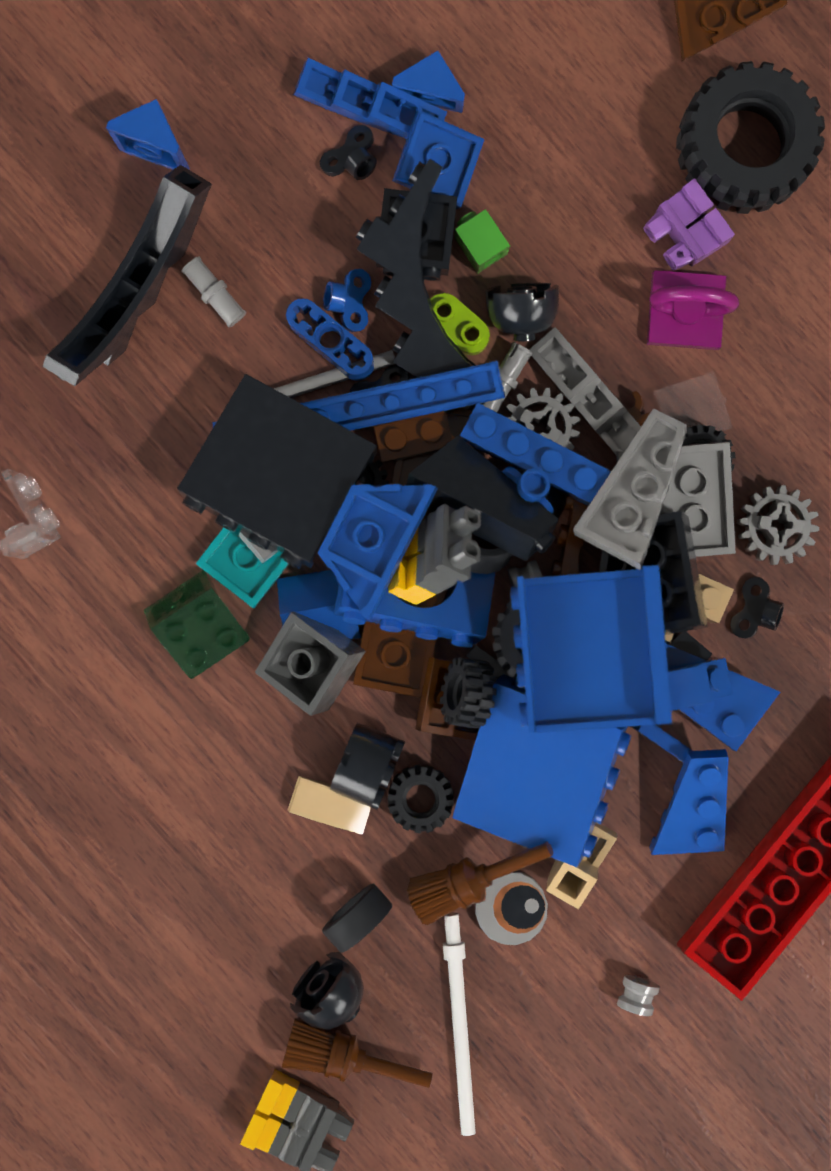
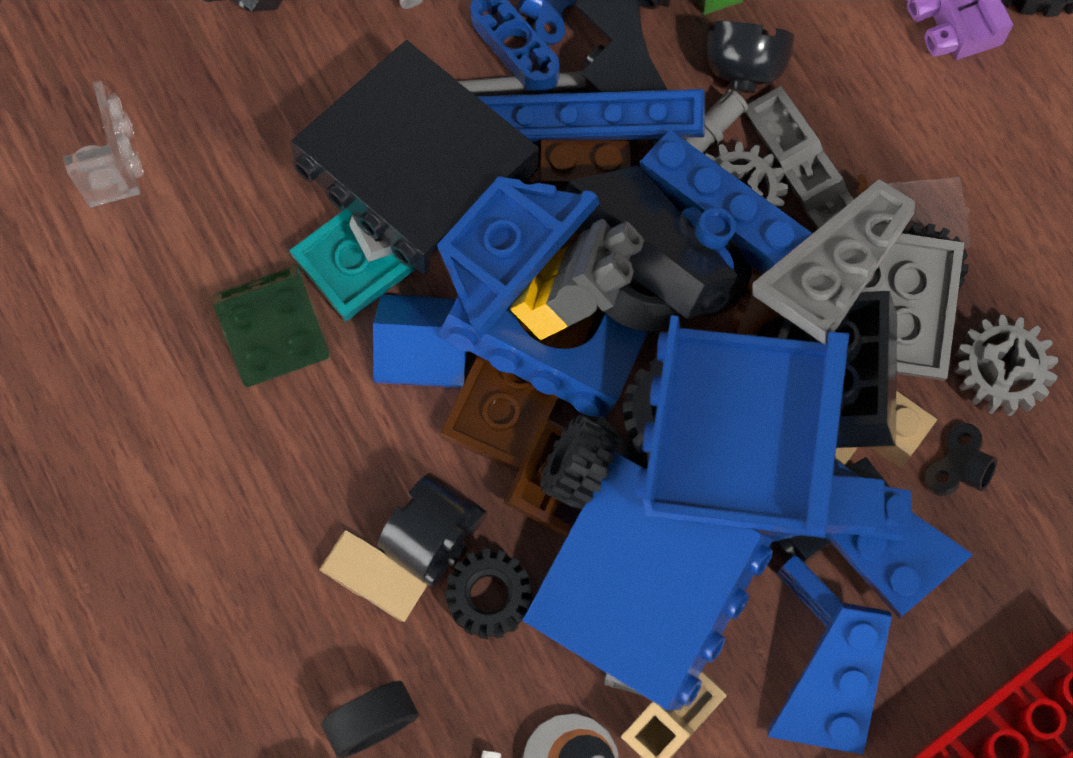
camera: 15 degrees right, 15 degrees down
(309, 663) = (394, 392): dark grey slope -> none
(459, 322) = (671, 56): lime plate -> none
(464, 883) = (518, 706): reddish brown piece -> none
(688, 309) = (944, 98): magenta tile -> none

